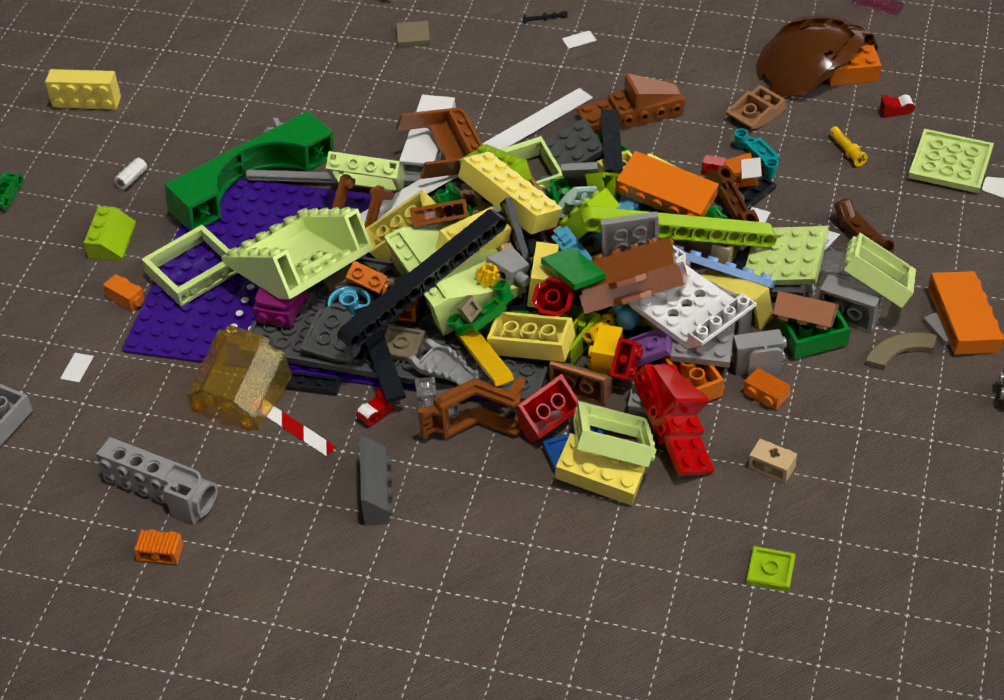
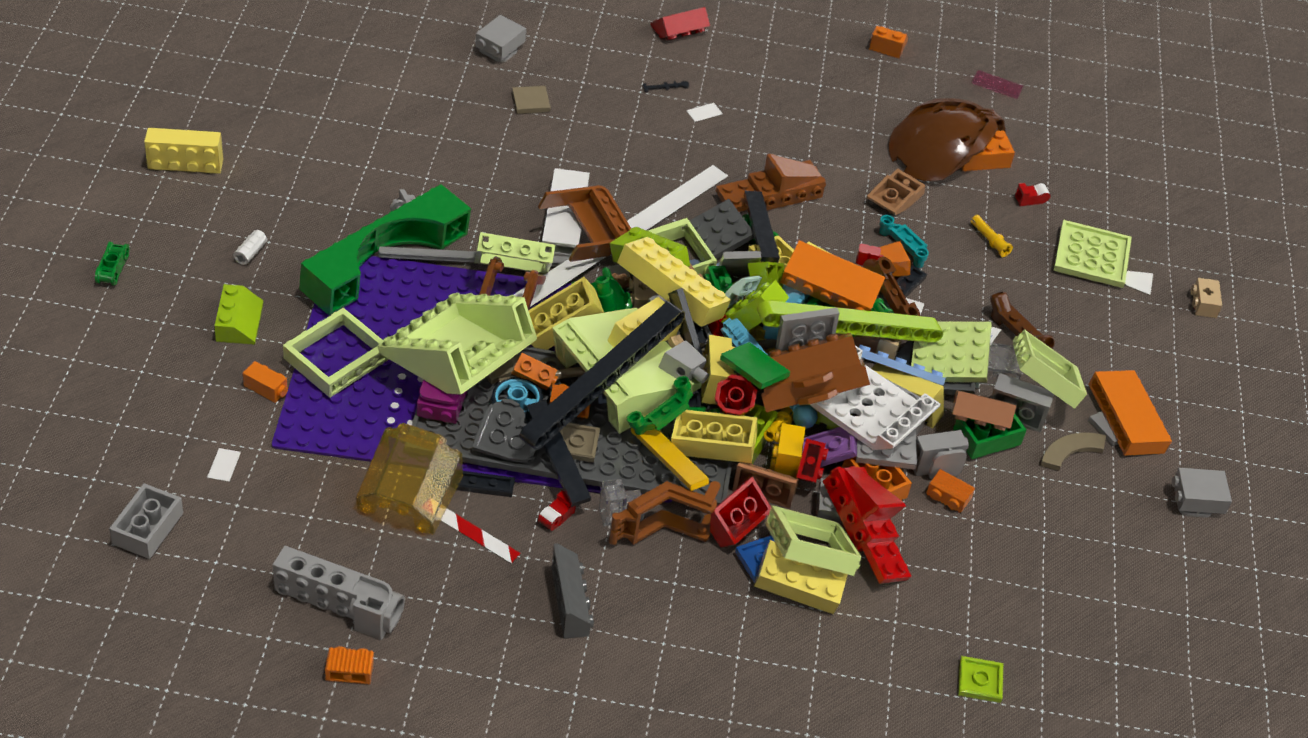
camera: 15 degrees left, 0 degrees up
(439, 213) = (608, 302): dark orange arch -> none
(442, 363) = (627, 464): light grey animal -> none
(469, 308) = (651, 407): dark tan plate -> none
(487, 275) = (666, 371): yellow gear -> none
(751, 168) = (904, 258): white sticker -> none
(772, 460) = (967, 566): tan brick -> none

